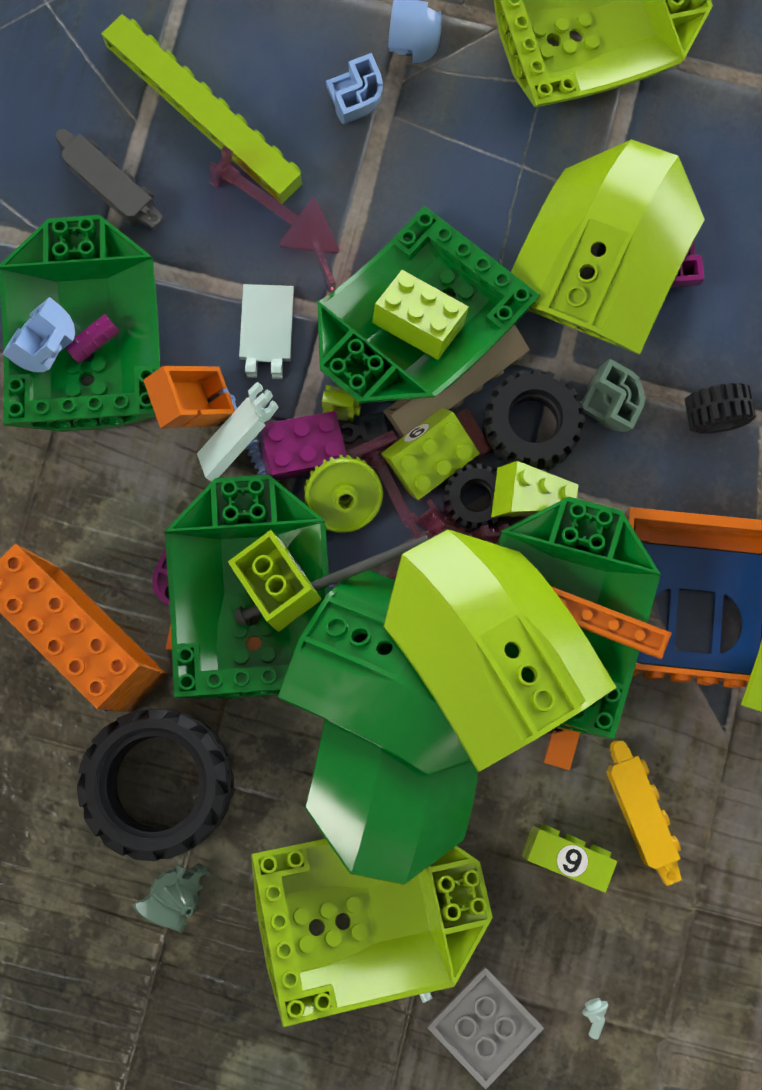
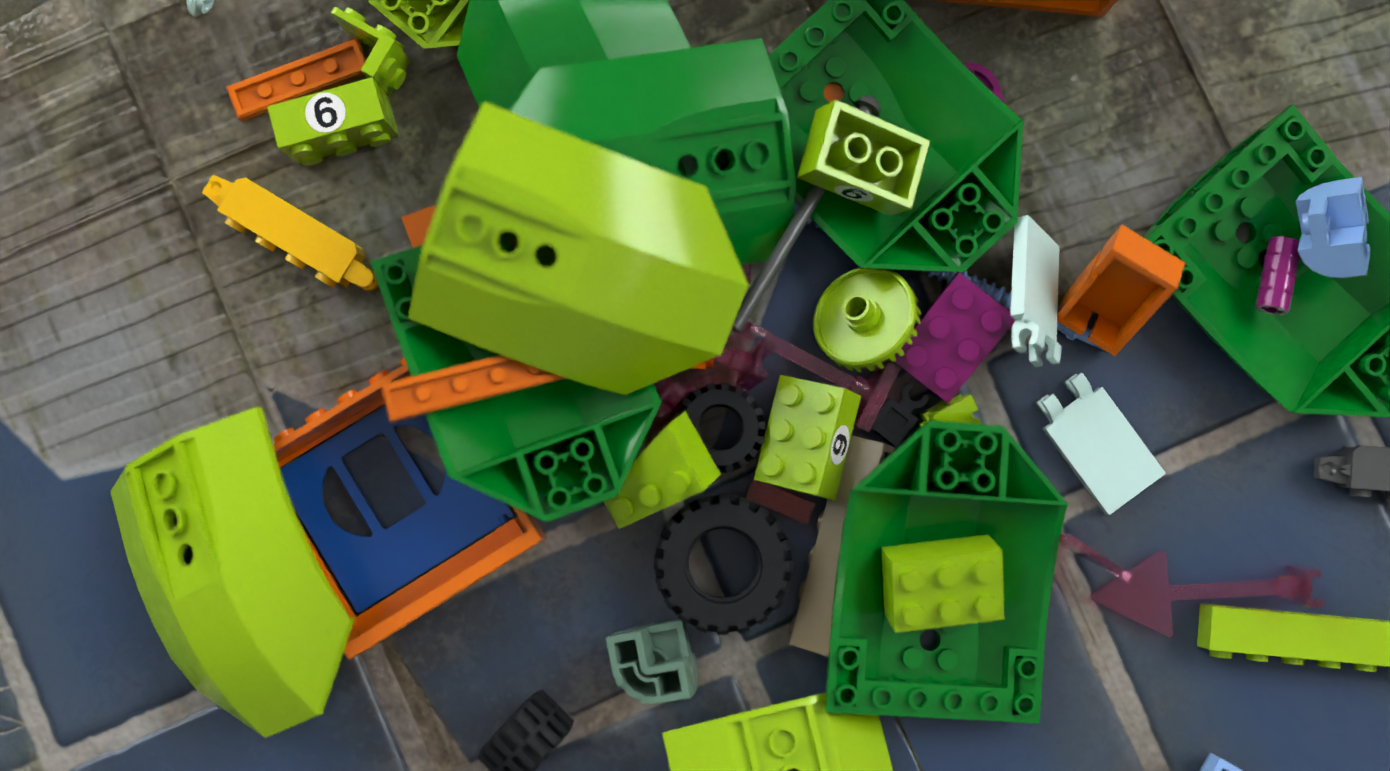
camera: 145 degrees right, 5 degrees up
(510, 868) = (387, 59): none -> lime bracket
(569, 908) = (298, 79): none -> orange tile

